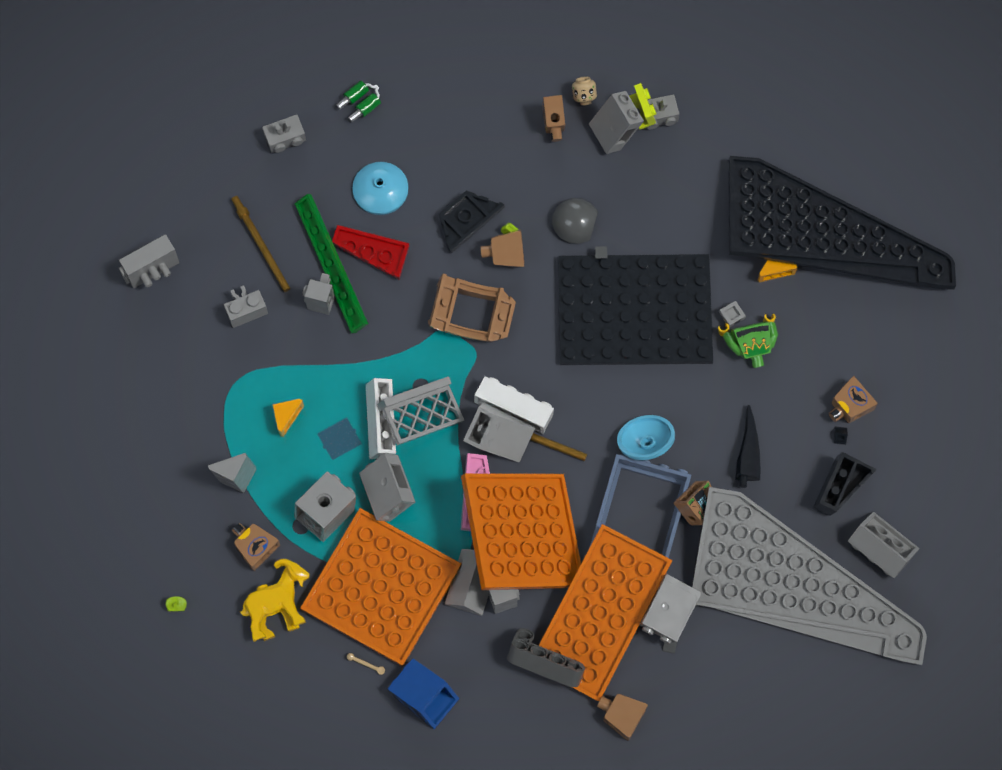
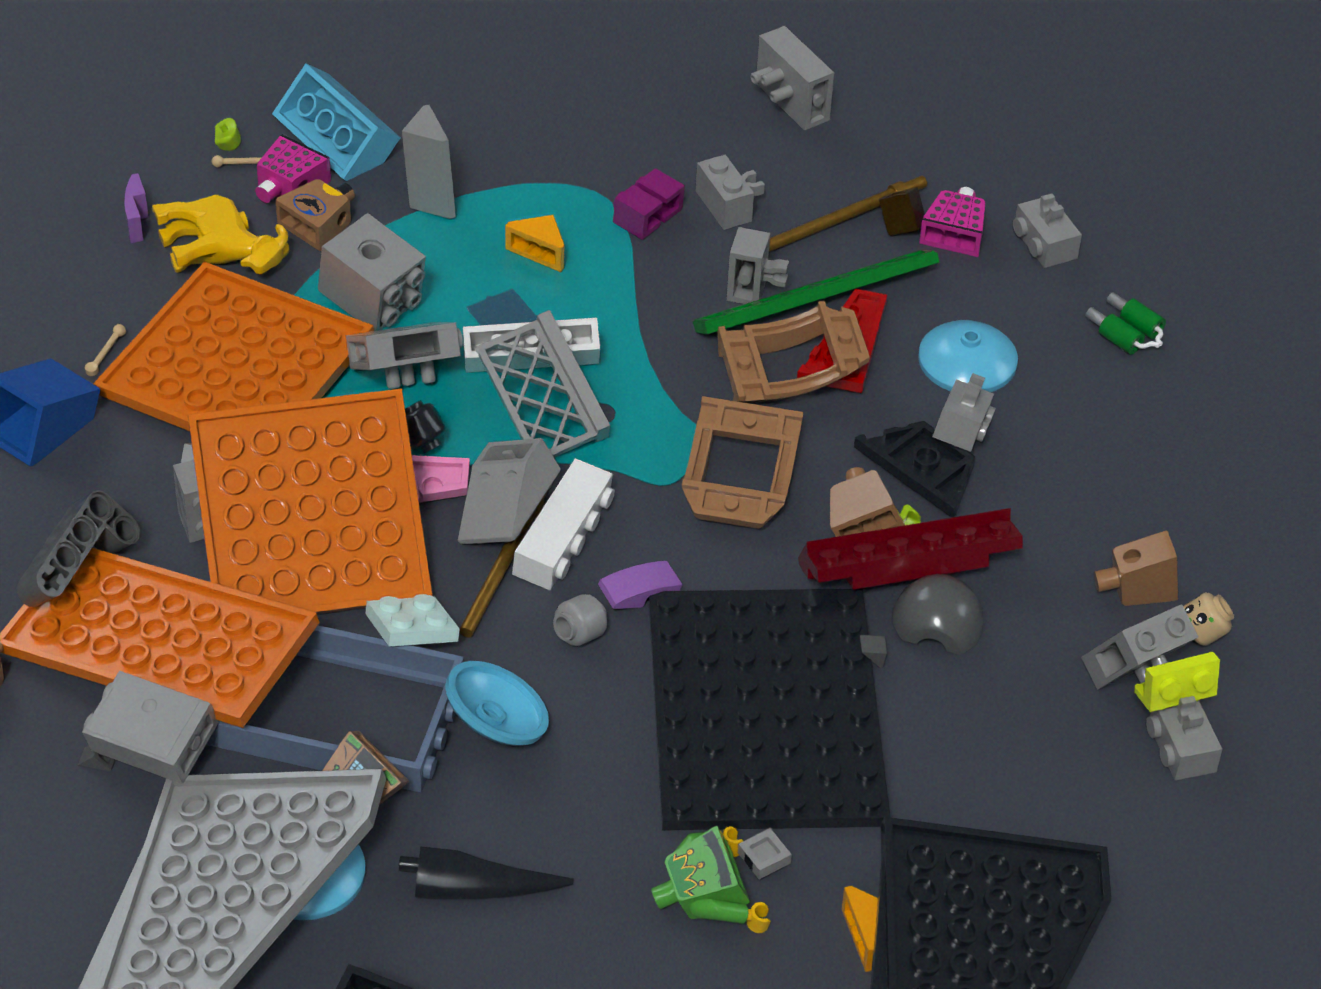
camera: 85 degrees right, 25 degrees down
(172, 537) = (335, 123): none -> medium azure slope
(198, 577) = (218, 161): none -> tan hinge
(217, 563) = (288, 167): none -> dark pink torso
(240, 654) = (135, 208): none -> medium lavender slope
(250, 351) = (651, 195): none -> magenta piece
(264, 210) = (902, 211): none -> dark brown panel
(274, 181) = (954, 222): none -> dark pink torso
(393, 304) = (743, 348): none -> medium nougat wedge
(439, 192) = (965, 414): none -> light grey brick
(443, 479) = (424, 426): none -> black head
(538, 228) = (911, 550): none -> dark red slope
(555, 367) = (635, 584): none -> medium lavender slope
(583, 397) = (580, 620): none -> light grey head
(587, 481) = (412, 620): none -> light aqua plate

